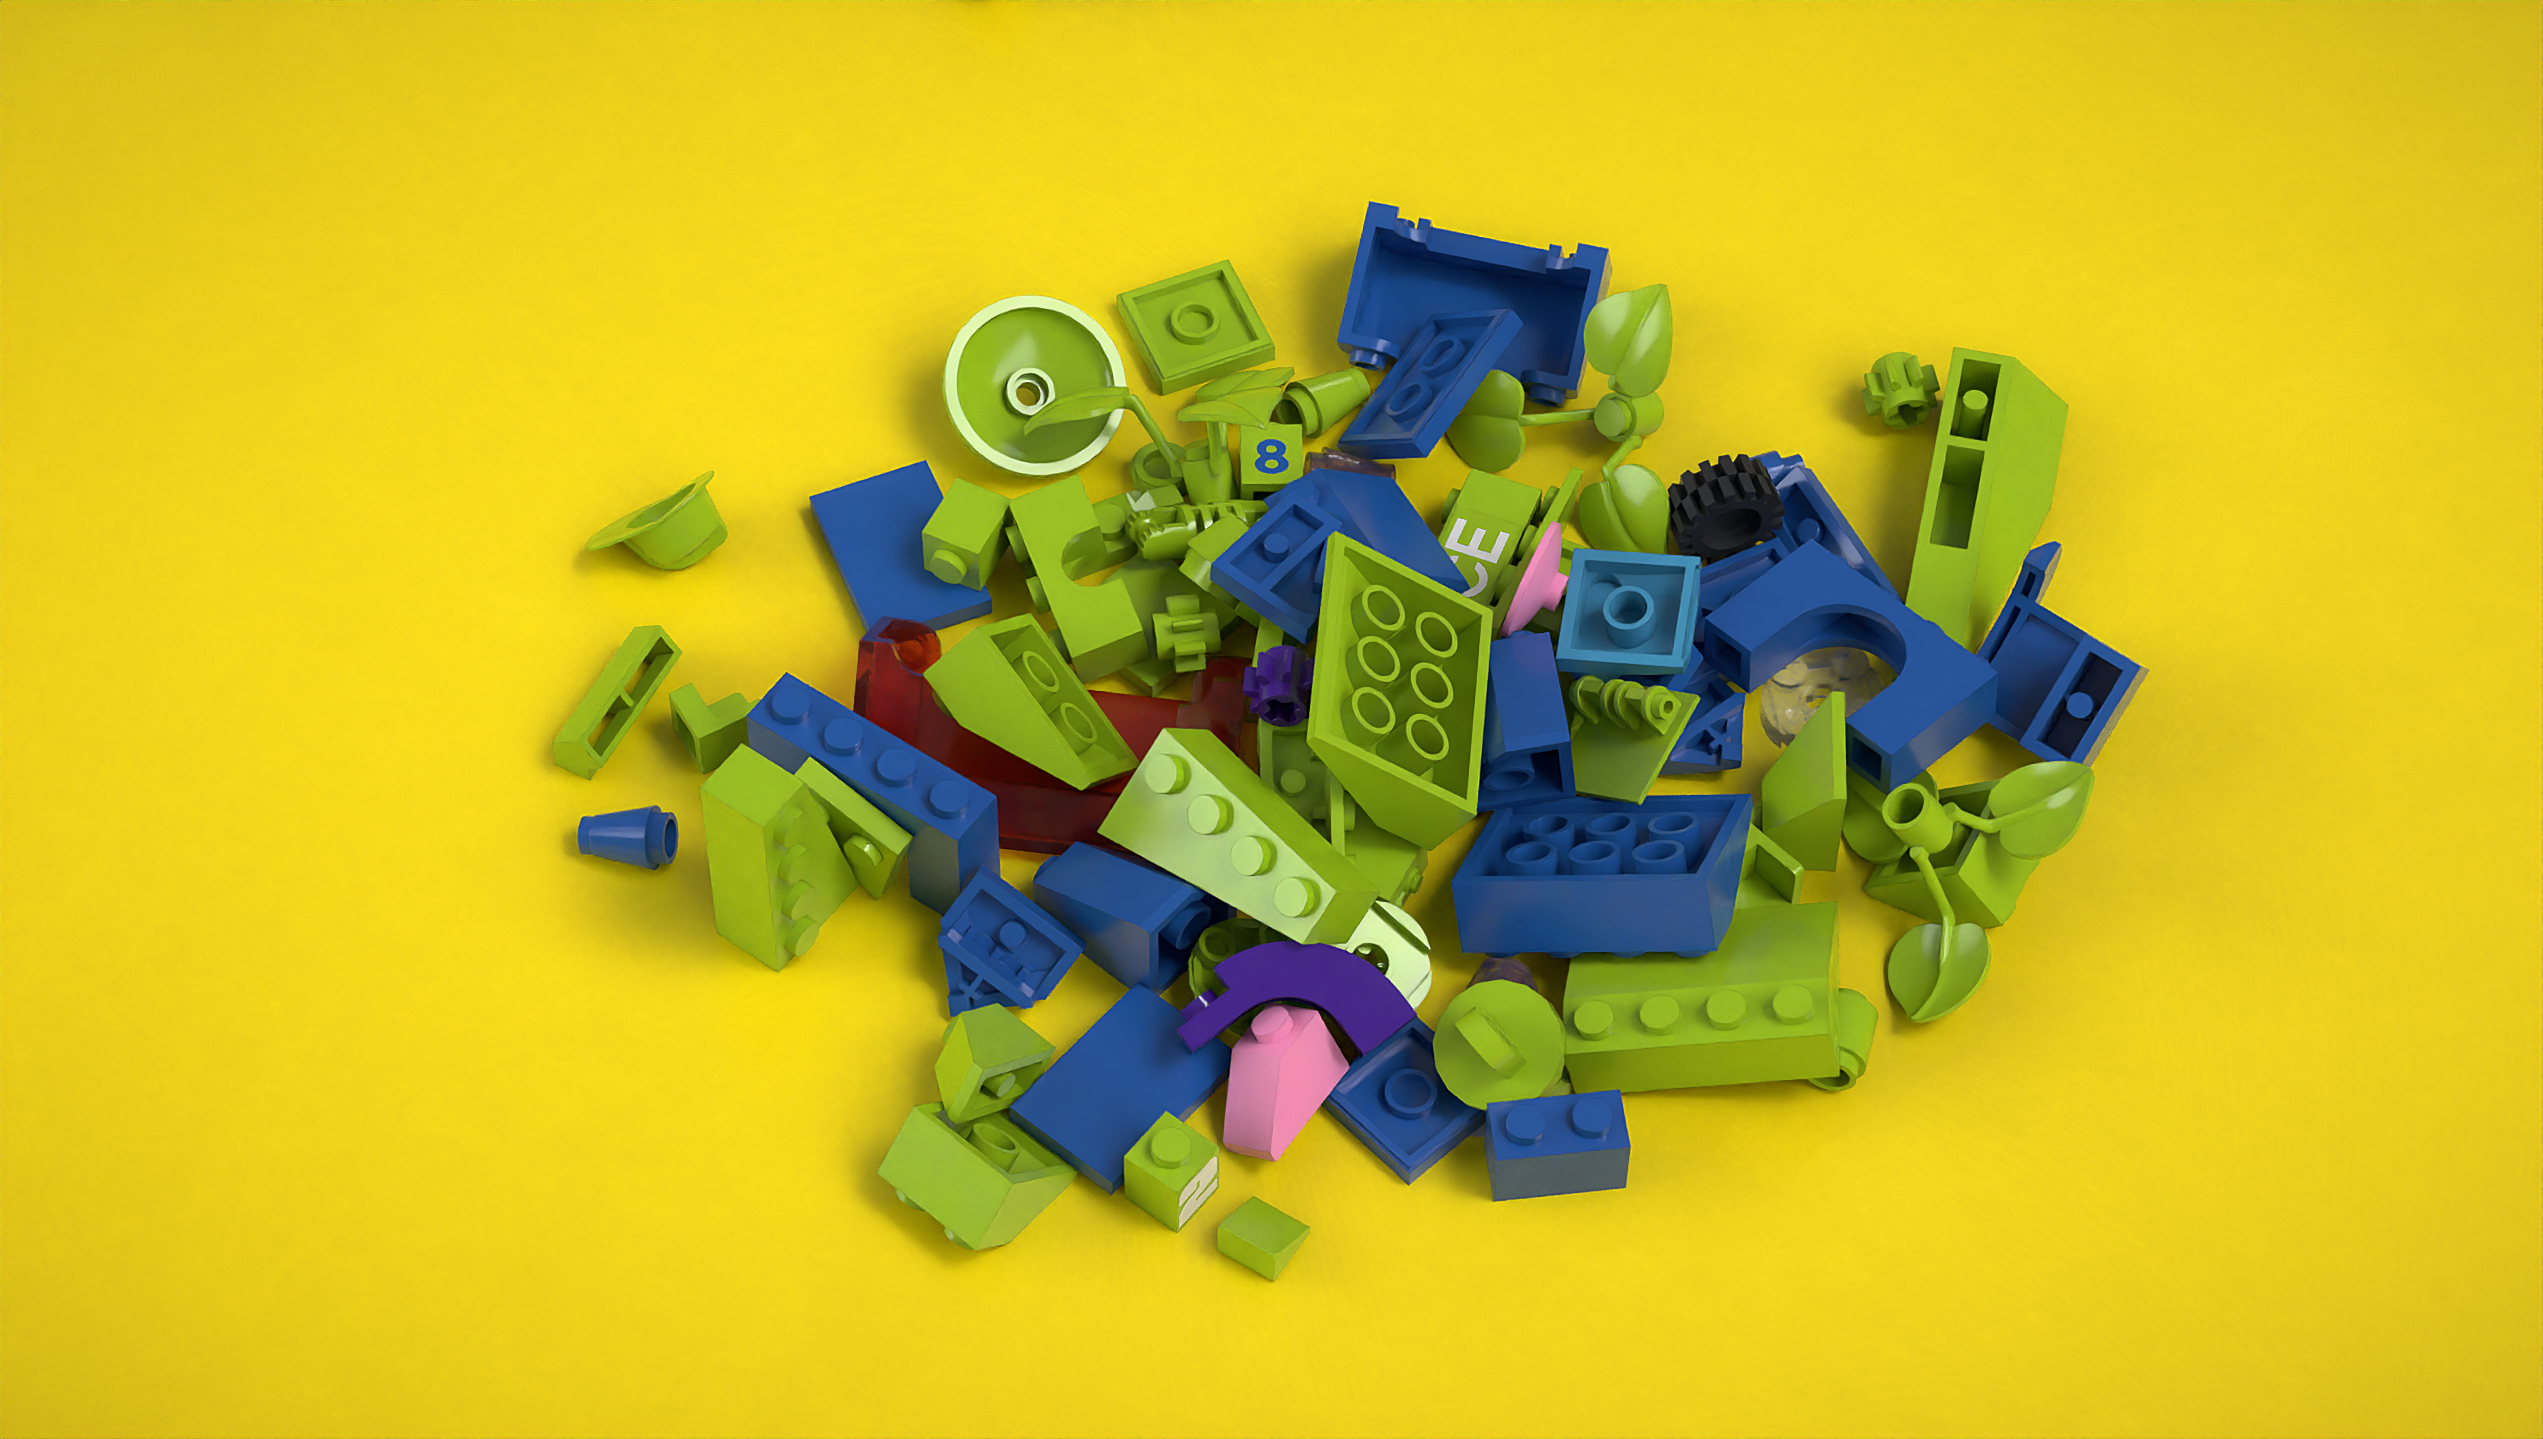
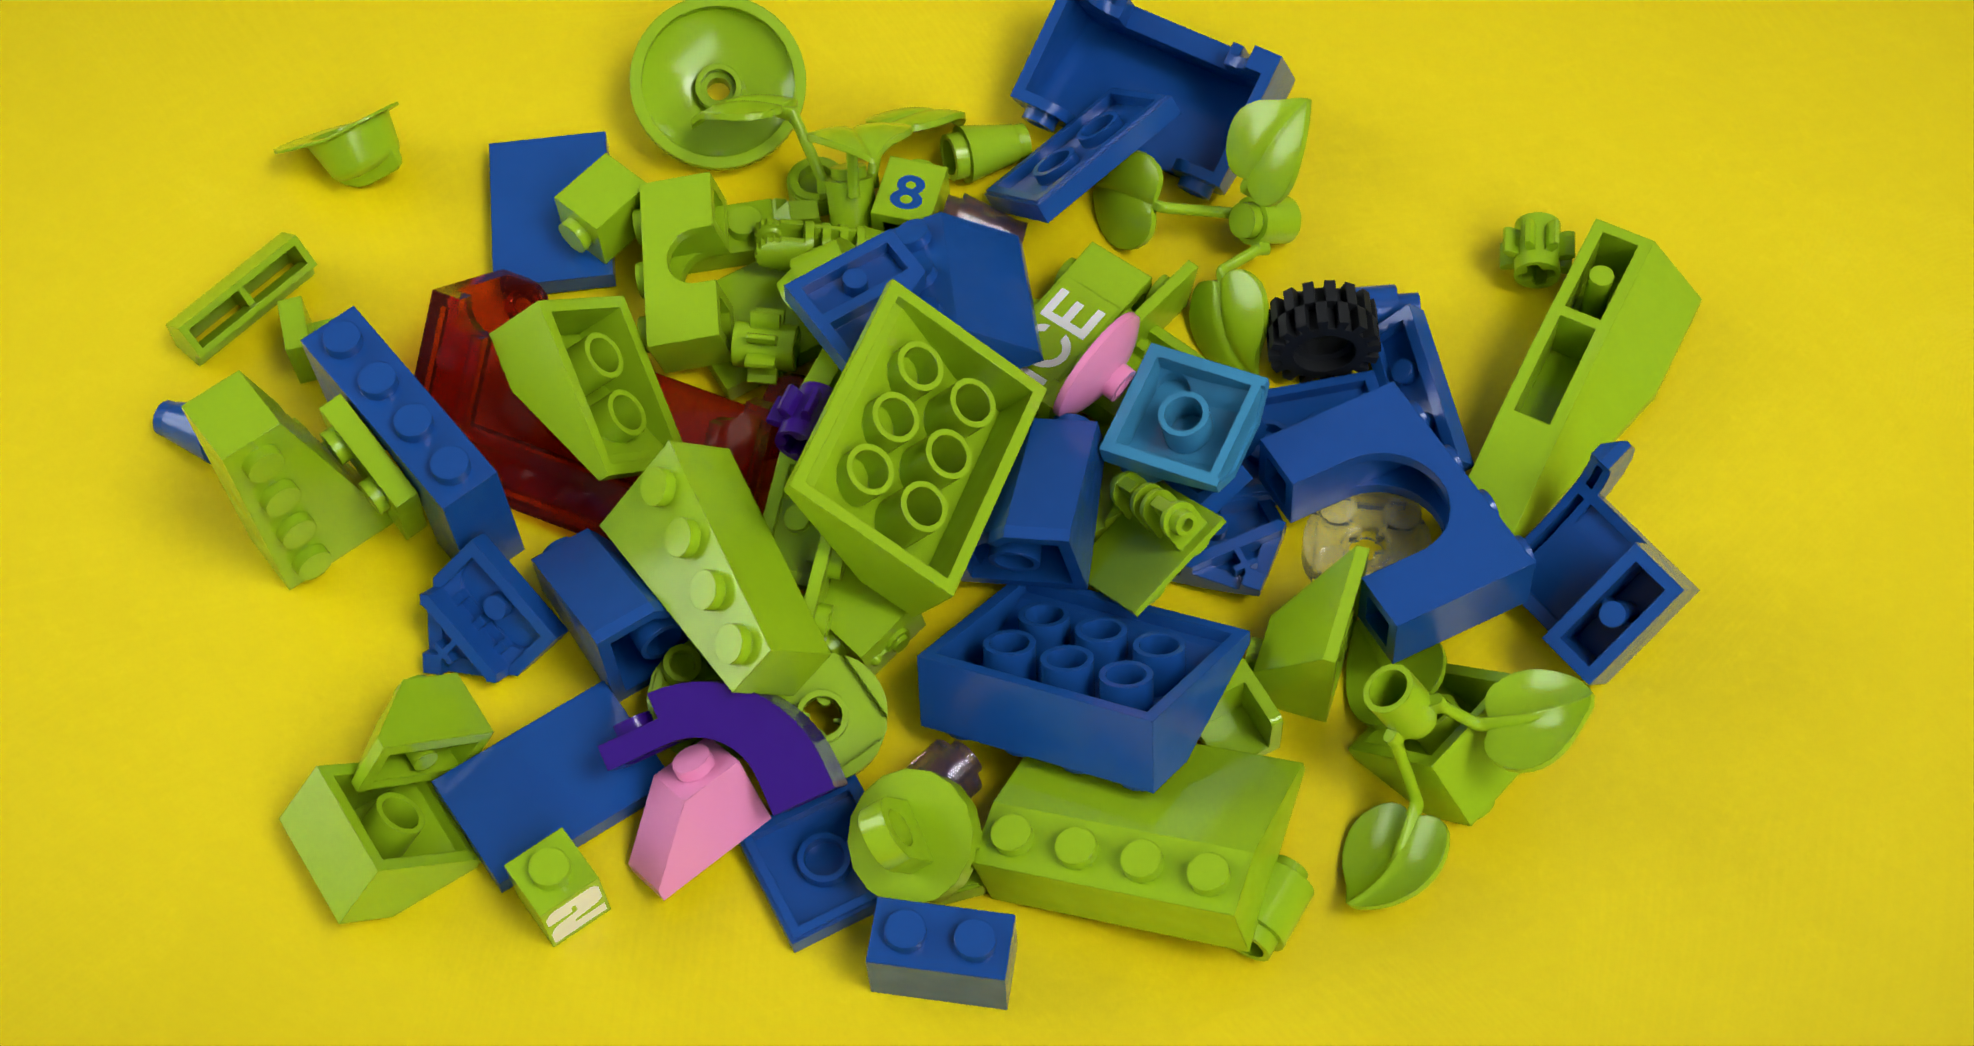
camera: 20 degrees right, 5 degrees up
(1195, 327) = (897, 58): lime tile -> none
(1261, 1237) = (628, 973): lime slope -> none

